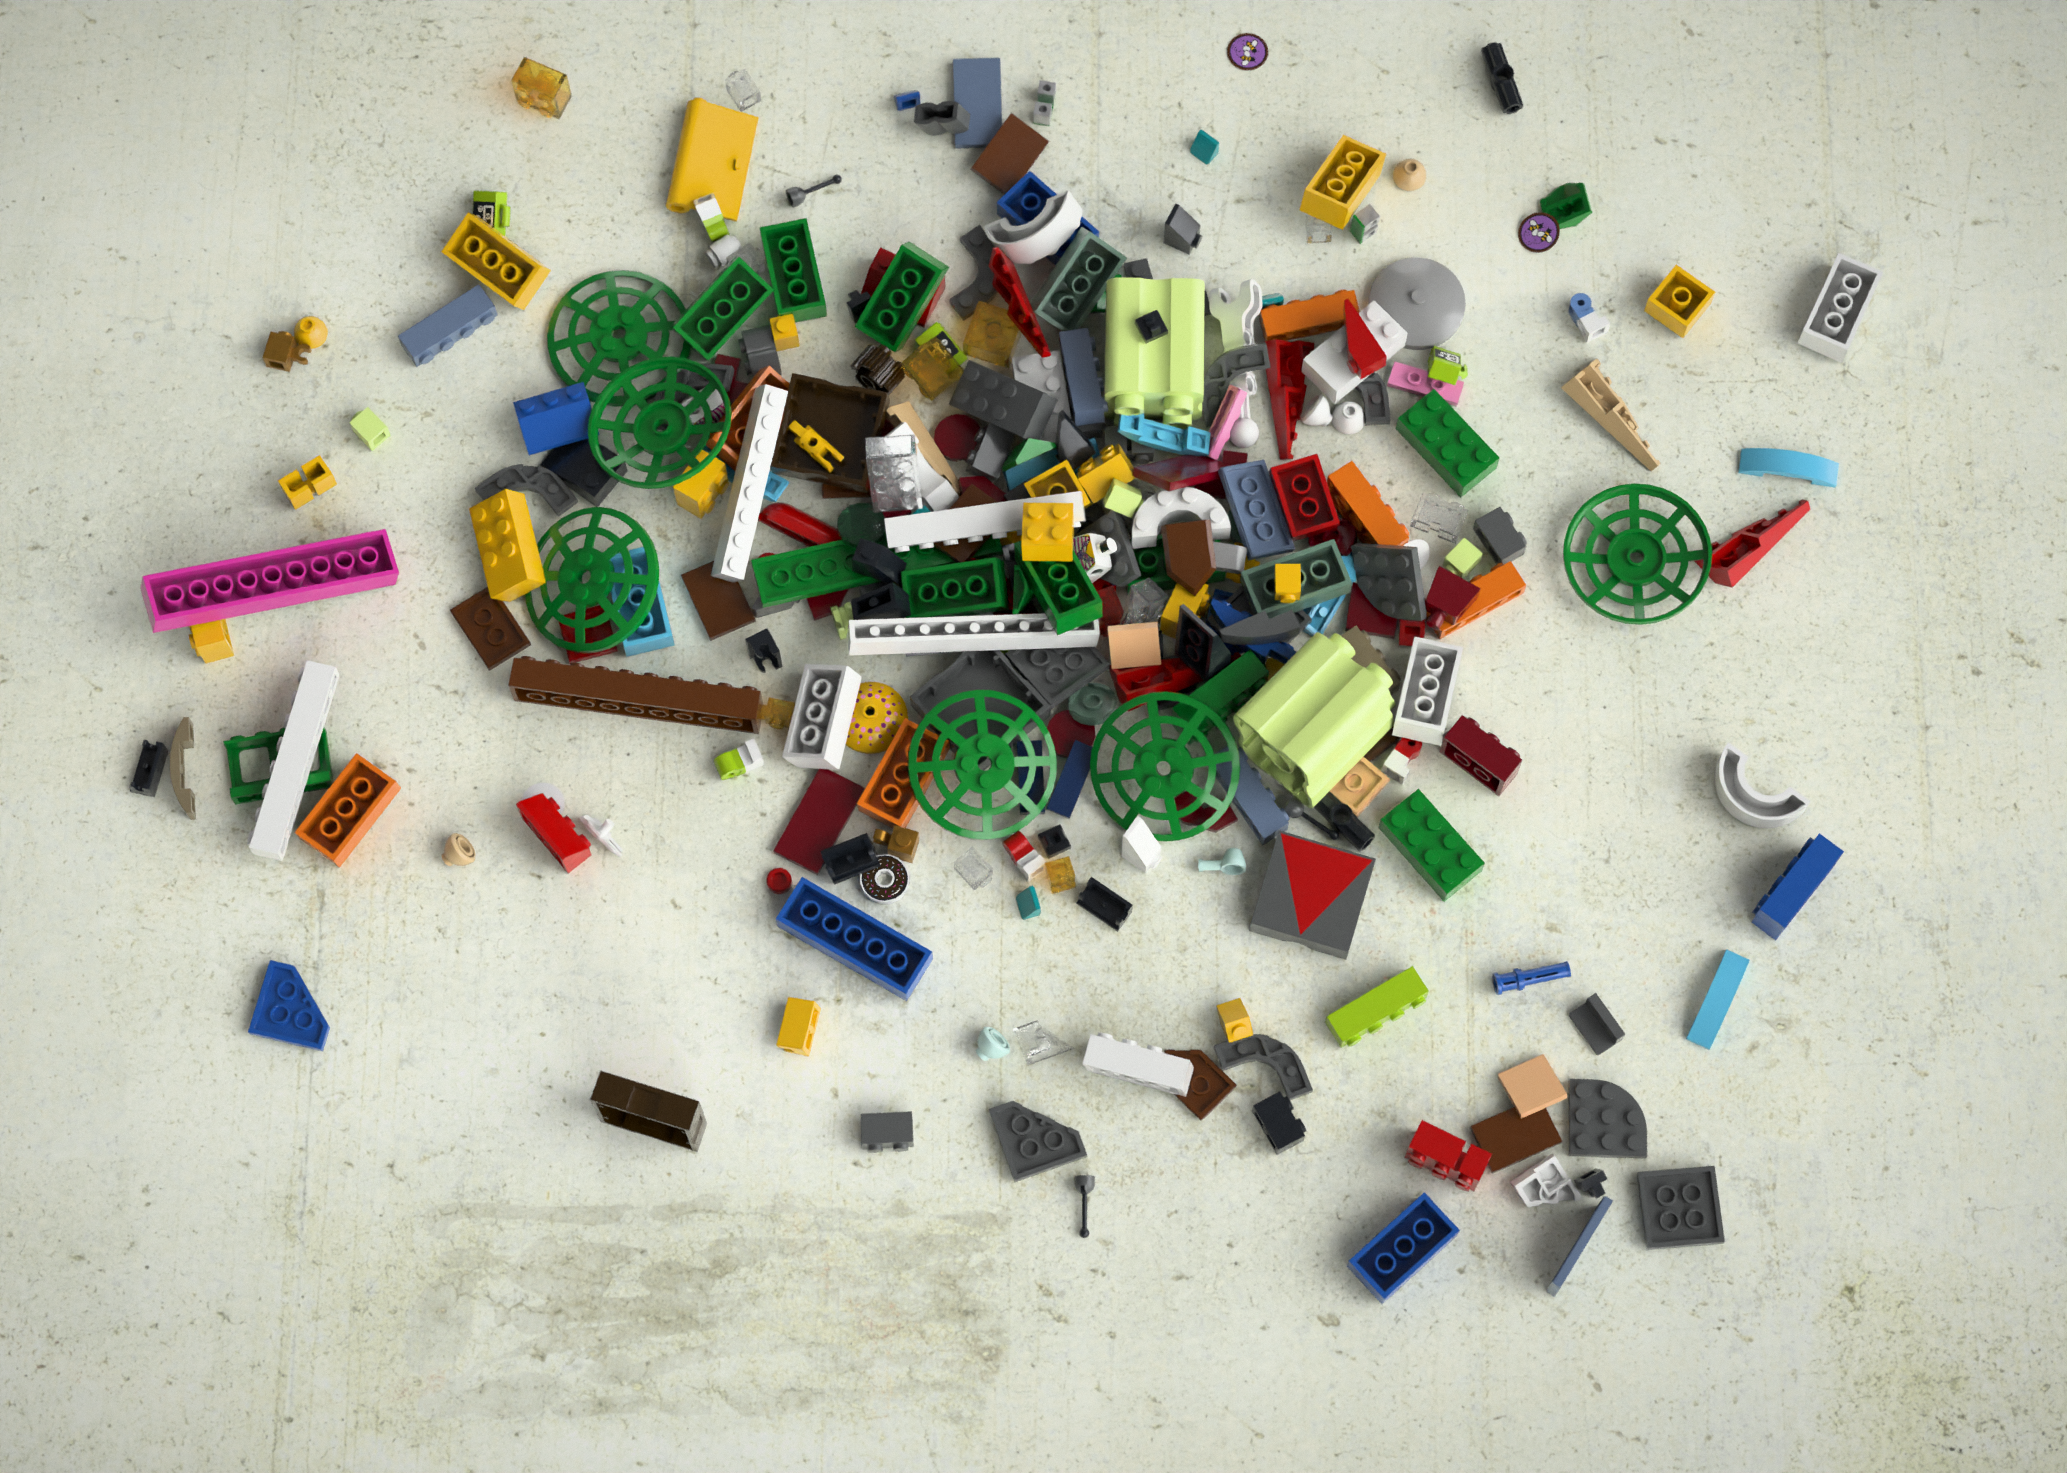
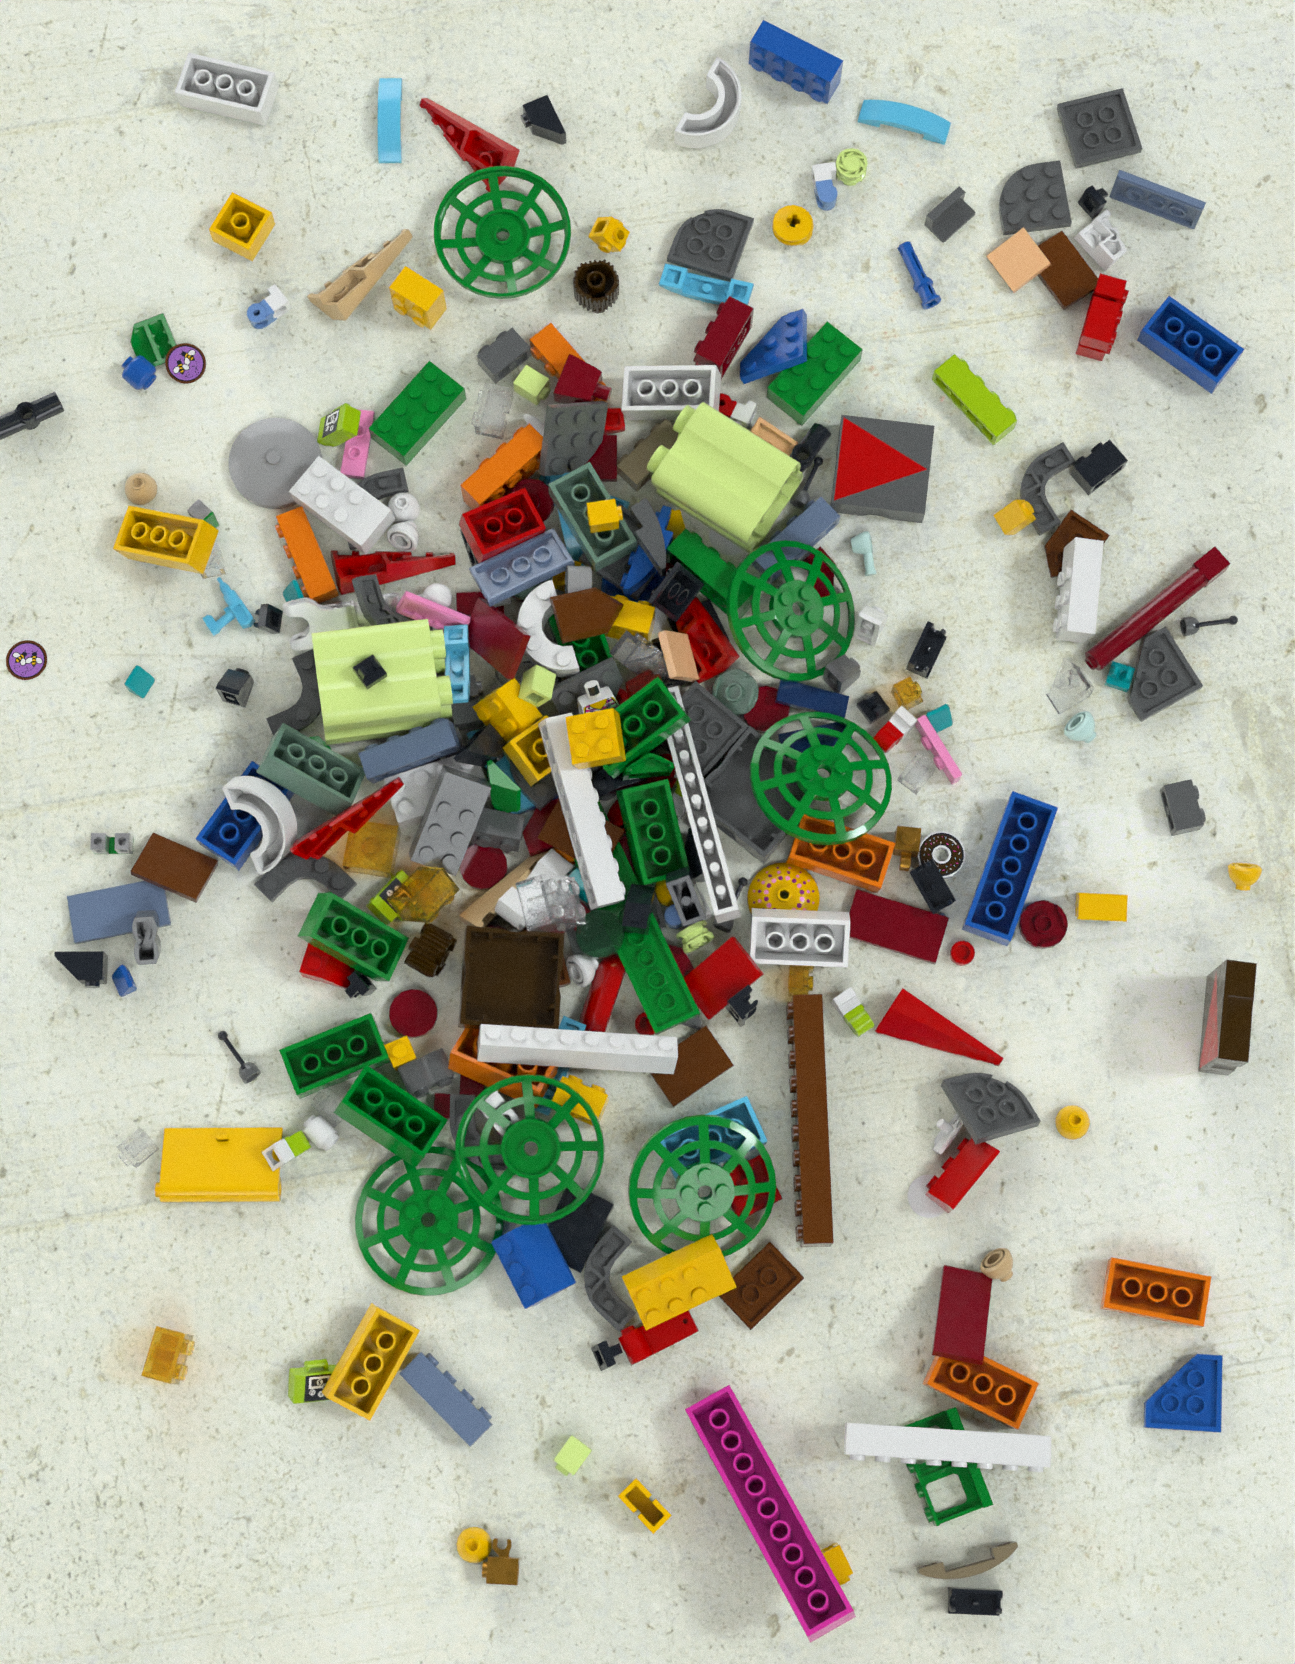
camera: 100 degrees left, 5 degrees up
(396, 996) = (1156, 1292): none -> orange brick
(415, 801) = (962, 1315): none -> dark red tile
(456, 472) = (605, 1355): none -> black tile
(457, 510) = (643, 1343): none -> red door
(585, 955) = (1072, 1122): none -> yellow brick
(614, 869) = (989, 1106): none -> dark grey plate
(717, 818) = (918, 1023): none -> red wedge
(793, 967) = (1043, 924): none -> dark red tile
(798, 637) = (721, 977): none -> red tile
(804, 1179) = (1244, 874): none -> yellow brick
(806, 437) = (517, 1001): yellow hinge -> none
(823, 351) = (413, 1013): none -> dark red tile
(831, 511) = (581, 969): none -> white brick
(856, 659) = (728, 925): none -> hinge
(926, 64) = (86, 966): none -> black slope
(985, 897) = (941, 755): none -> bright pink plate
(1042, 1099) = (1119, 676): none -> teal tile
(1092, 810) = (841, 673): none -> flat silver slope
(1107, 1150) = (1157, 609): none -> dark red brick
(1248, 270) = (269, 618): none -> black tile
(1264, 244) = (235, 609): none -> medium azure piece
(1363, 350) = (342, 491): red slope -> none
(1463, 812) = (779, 349): none -> blue plate
(1533, 185) = (138, 372): none -> blue head
(1549, 751) = (703, 288): none -> medium azure slope
(1559, 627) = (596, 297): none -> dark brown brick
(1572, 457) = (417, 298): none -> yellow brick
(1599, 768) = (711, 243): none -> dark grey plate
(1618, 857) = (792, 235): none -> yellow piece
(1620, 661) = (609, 234): none -> yellow brick
(1650, 896) = (823, 187): none -> leg
(1669, 929) = (851, 166): none -> yellowish green wheel
(1767, 618) = (543, 120): none -> black slope

